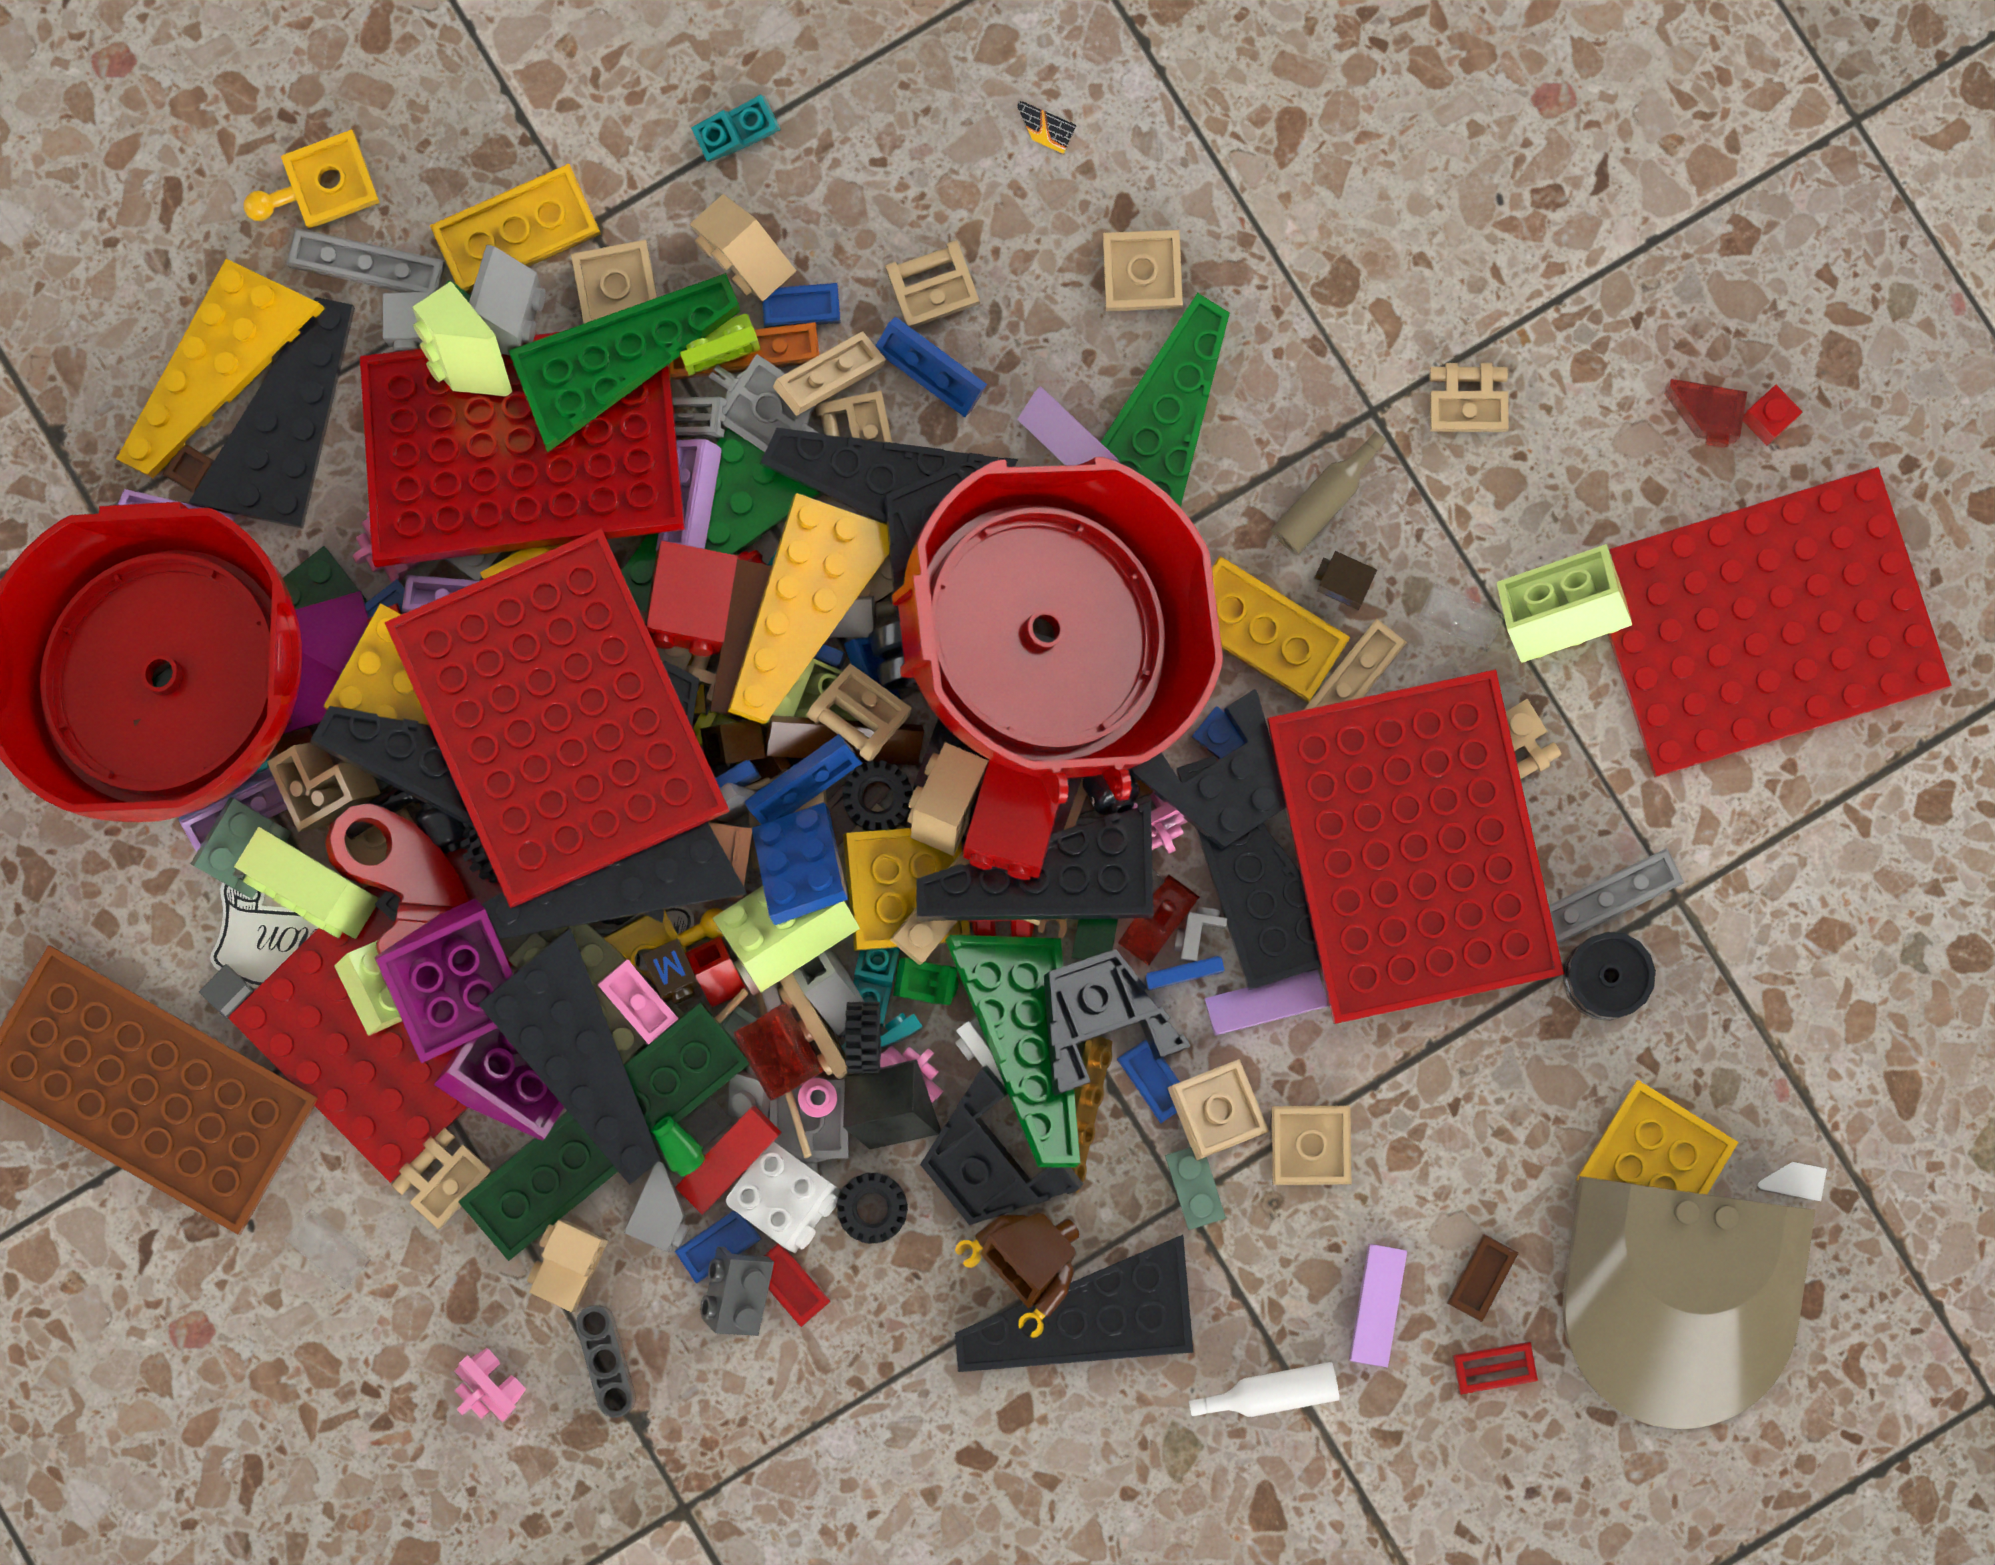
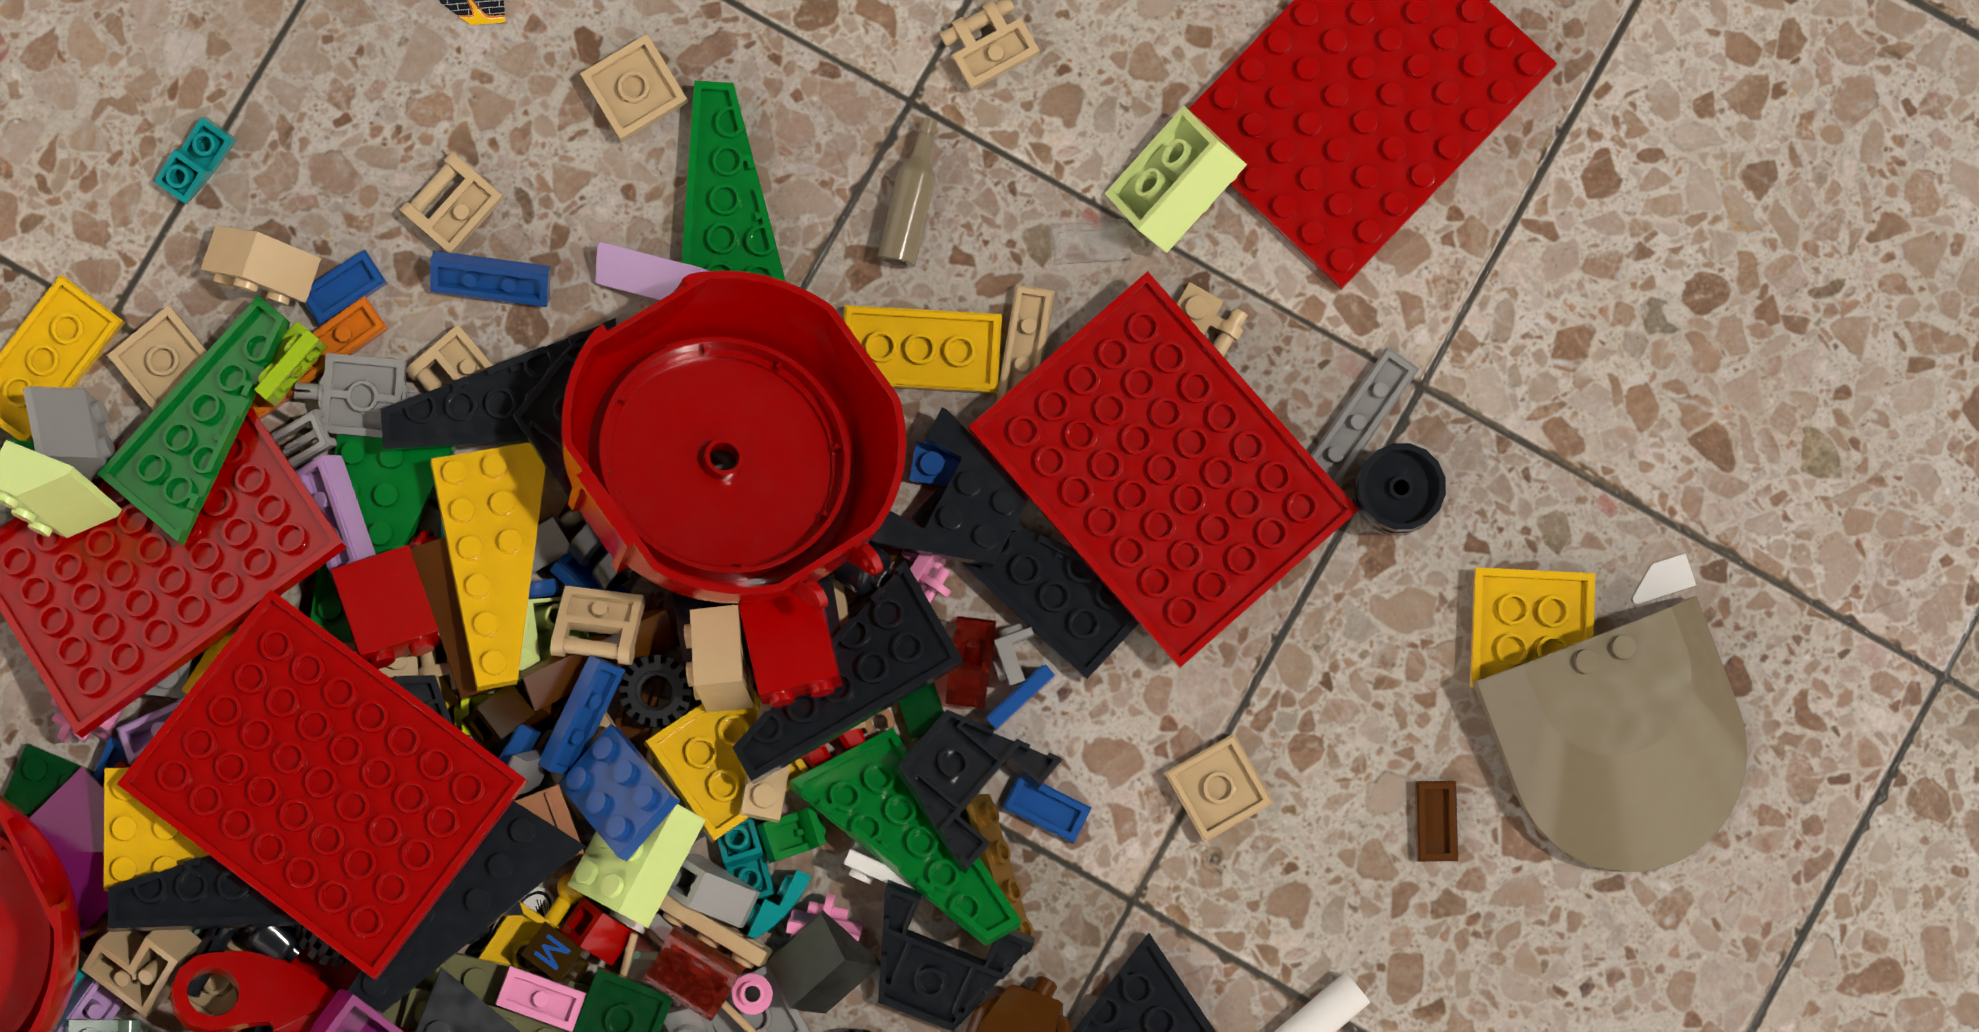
camera: 30 degrees left, 0 degrees up
(829, 373) = (401, 334): tan plate -> none
(863, 1037) = (763, 917): black tyre -> none
(1195, 1188) = (1136, 883): sand green plate -> none
(1218, 1109) = (1118, 802): tan plate -> none
(1266, 1003) = (1108, 683): lavender slope -> none
(1345, 579) = (968, 265): dark brown brick -> none
(1378, 1305) = (1357, 898): lavender slope -> none
(1462, 1373) = (1465, 917): red tile -> none

